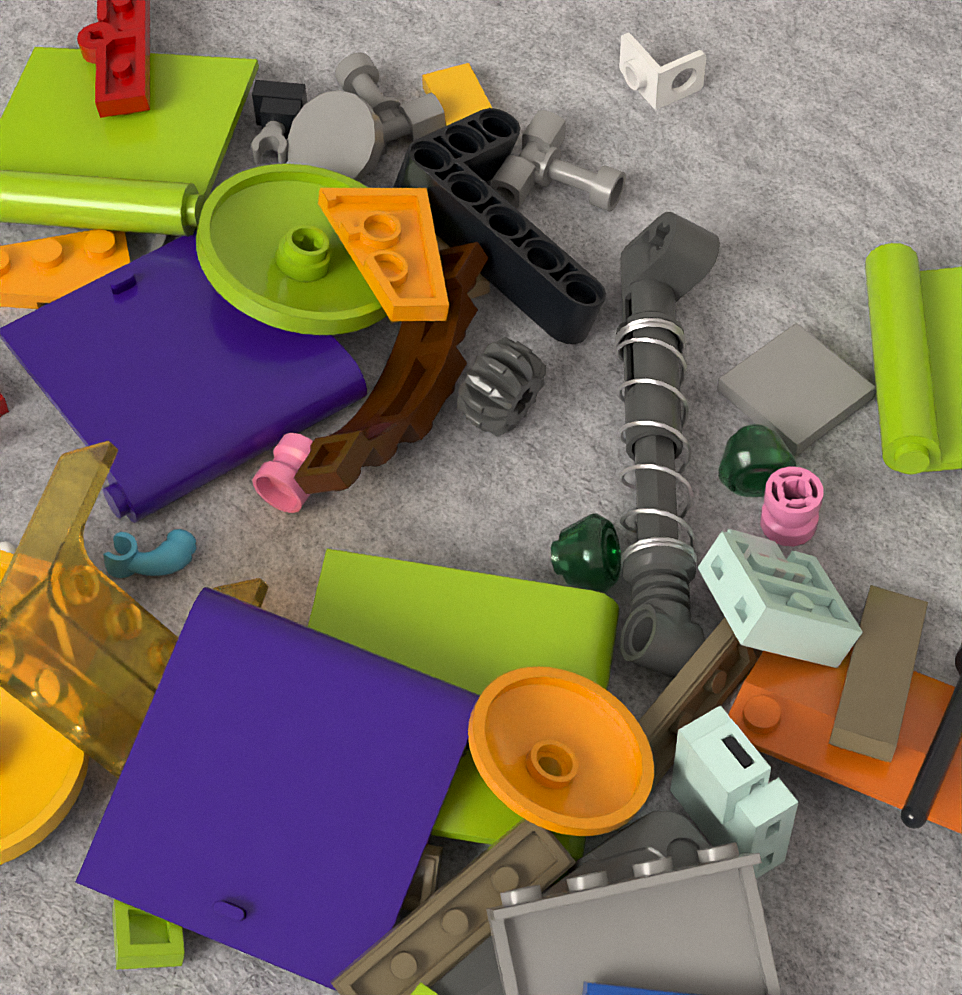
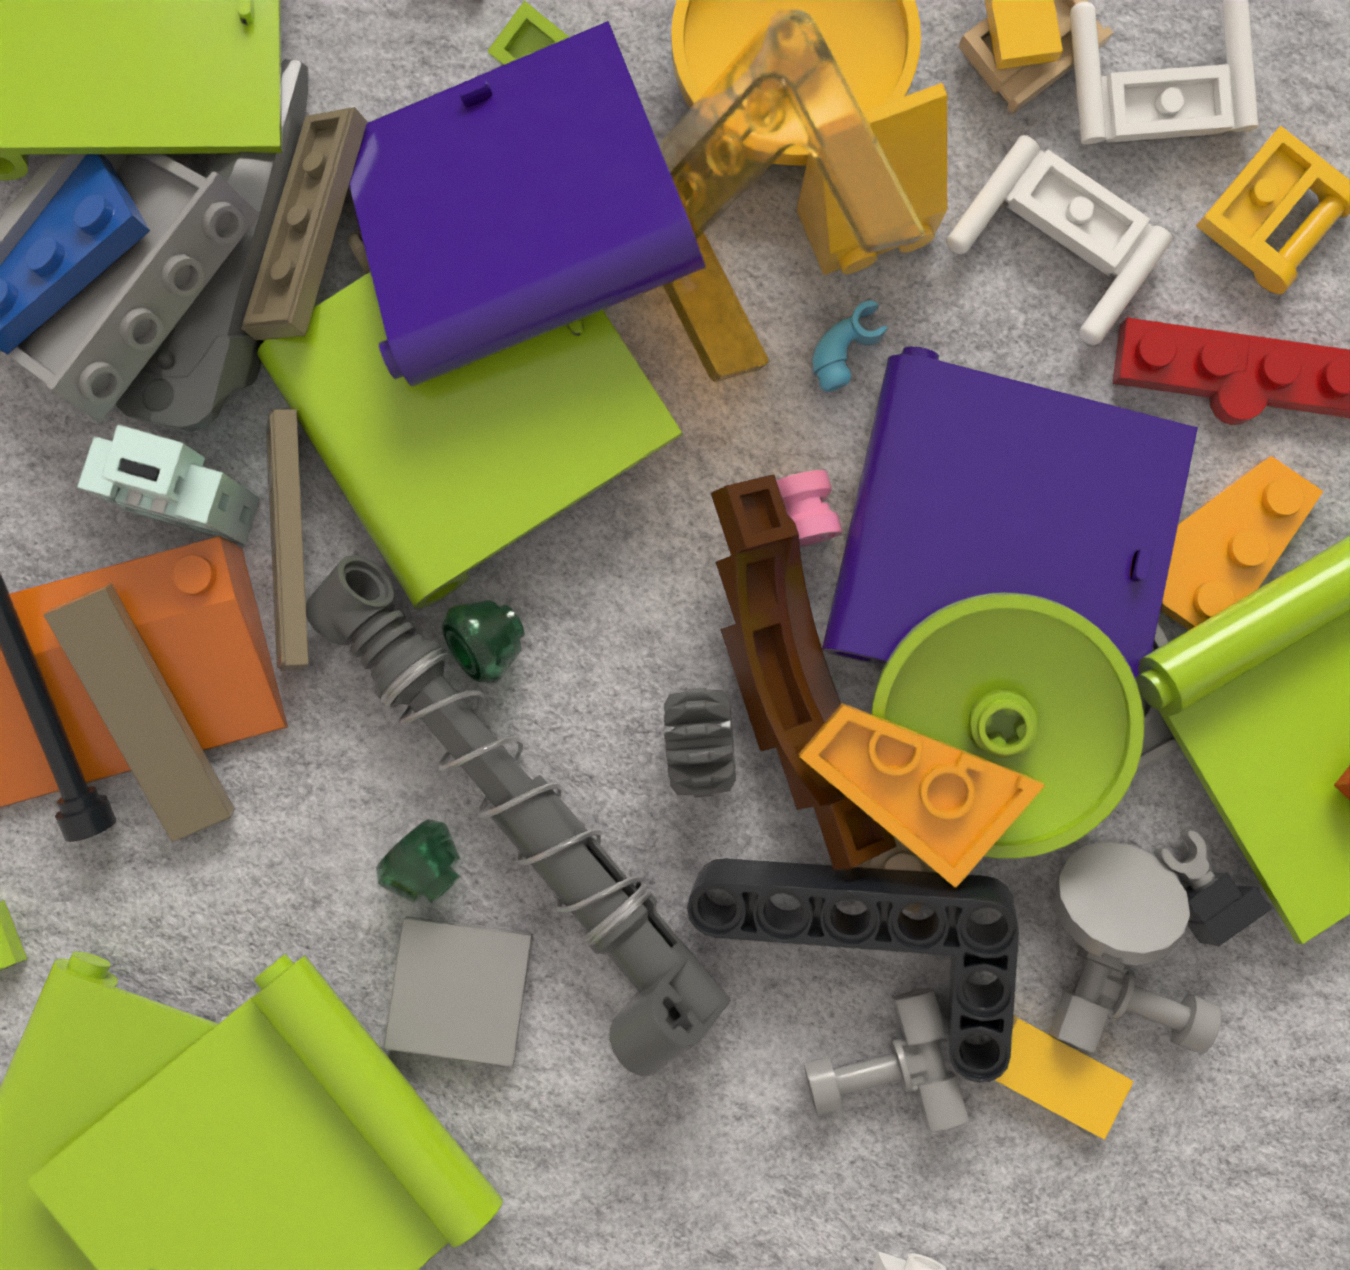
camera: 135 degrees right, 30 degrees up
(561, 751) = (266, 382): light orange dish -> none
(778, 600) = (278, 710): light aqua piece -> none
(791, 506) = (366, 840): bright pink wheel -> none

